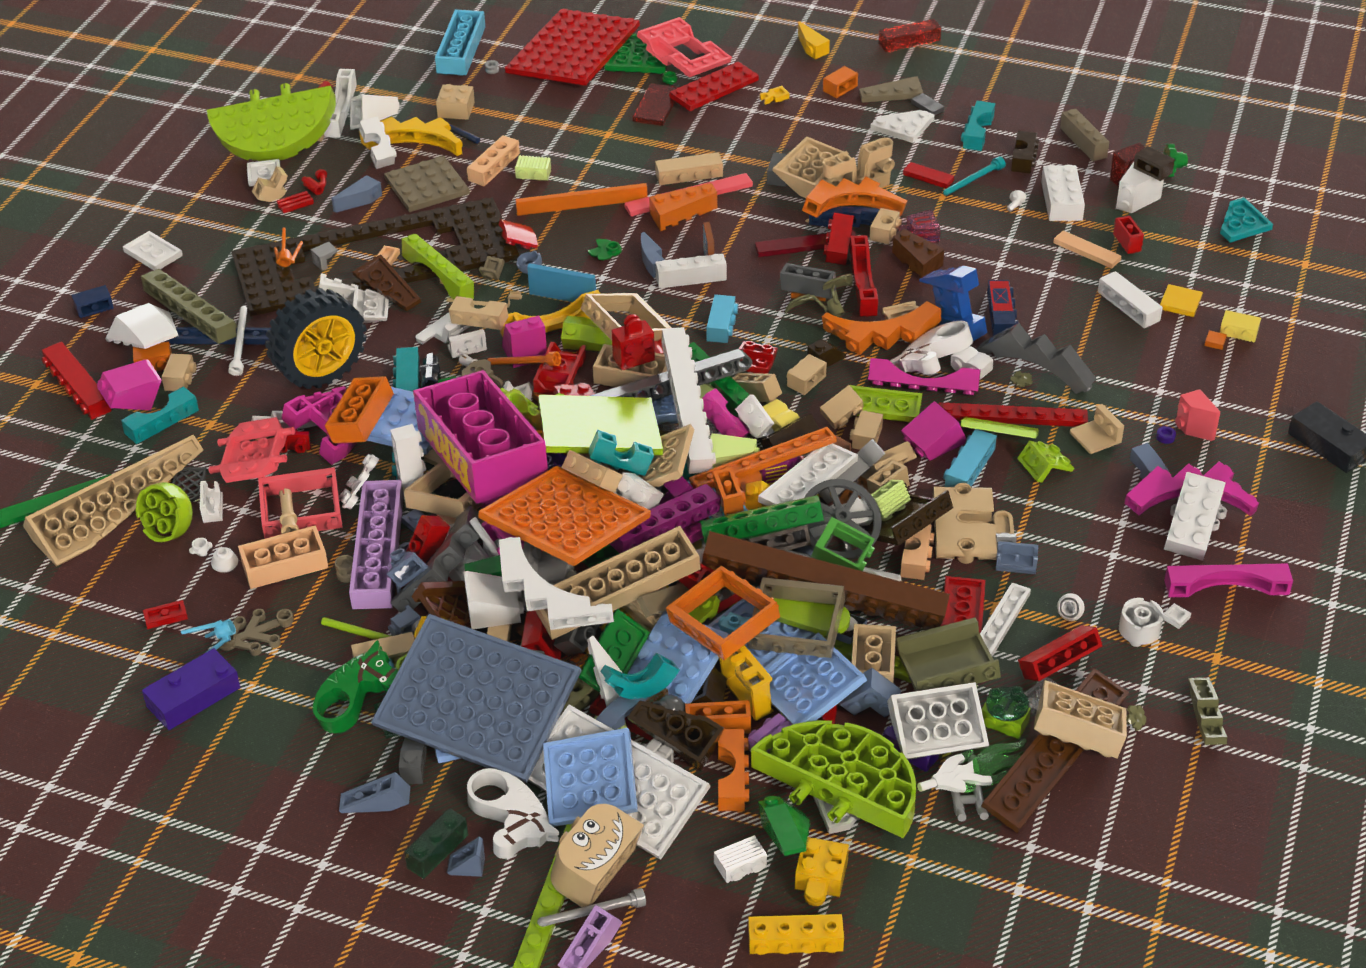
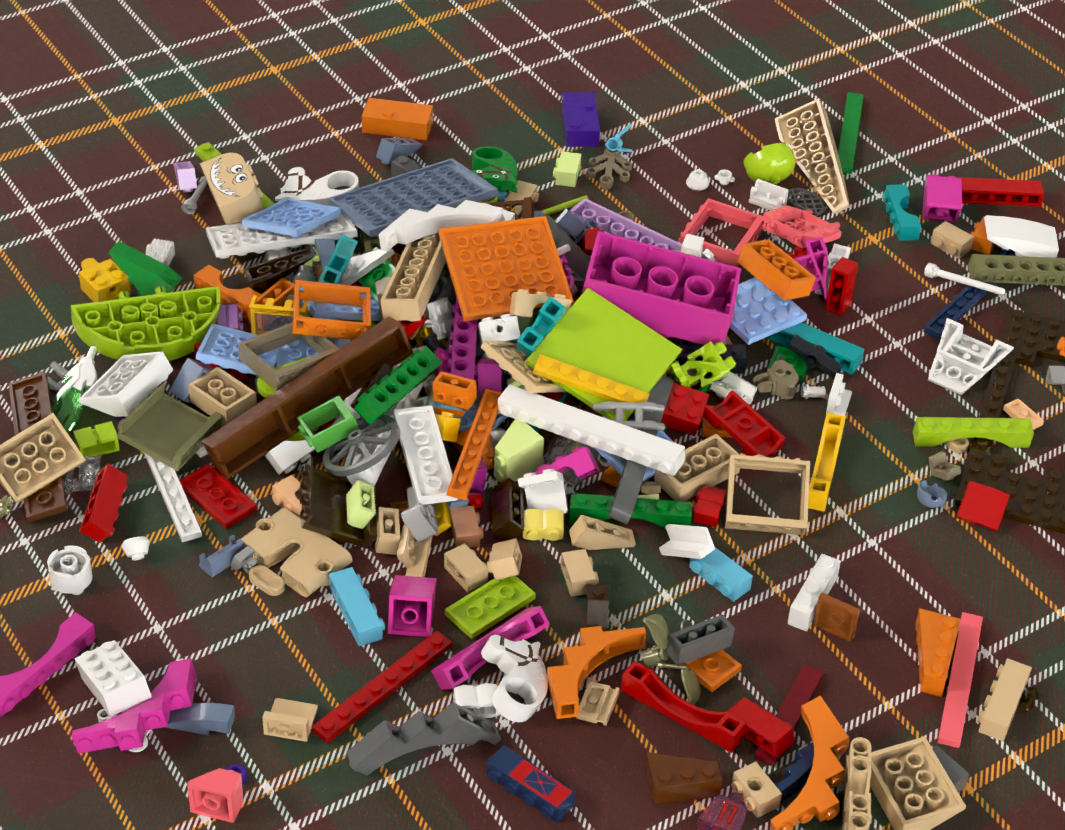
camera: 125 degrees right, 0 degrees up
(165, 614) = (668, 138): red plate -> none
(283, 557) = (664, 197): light nougat brick -> none
(288, 518) = (696, 206): tan pin -> none
(291, 651) = (567, 169): none -> yellowish green brick
(315, 338) = (893, 282): black wheel -> none
(322, 830) = (397, 119): none -> orange brick
(328, 372) = (841, 286): none -> red brick
(386, 281) = (981, 390): reddish brown wing -> none
(436, 843) = (330, 151): clear green brick -> none
(441, 329) = (883, 406): white plate -> none
(468, 859) = (301, 159): sand blue slope -> none
(491, 316) = (843, 400): tan arch -> none
(513, 295) = (880, 455): tan piece -> none
(524, 338) = (802, 422): dark pink slope -> none
(550, 359) = (745, 408): orange piece -> none
(559, 283) = (865, 486): dark azure tile -> none
(580, 199) = (1013, 589): orange tile -> none
(583, 331) = (763, 482): lime wedge -> none
(605, 249) = (912, 562): green plate -> none
(633, 343) = (701, 447): red brick -> none
(638, 382) = (639, 407): none -> light grey piece
(640, 415) = (587, 381): none -> yellow plate
(650, 253) = (870, 582): sand blue slope -> none
(724, 329) = (687, 541): none -> white panel
(761, 355) = (643, 565): red slope -> none
(795, 934) = (77, 247): yellow brick -> none
(952, 296) = (566, 722): blue wedge -> none
(1000, 427) = (368, 649): lime tile -> none
(1007, 703) = (94, 429): clear green dish -> none
(1041, 458) = (299, 659): lime bracket -> none
(1176, 616) = (54, 610): white tile -> none

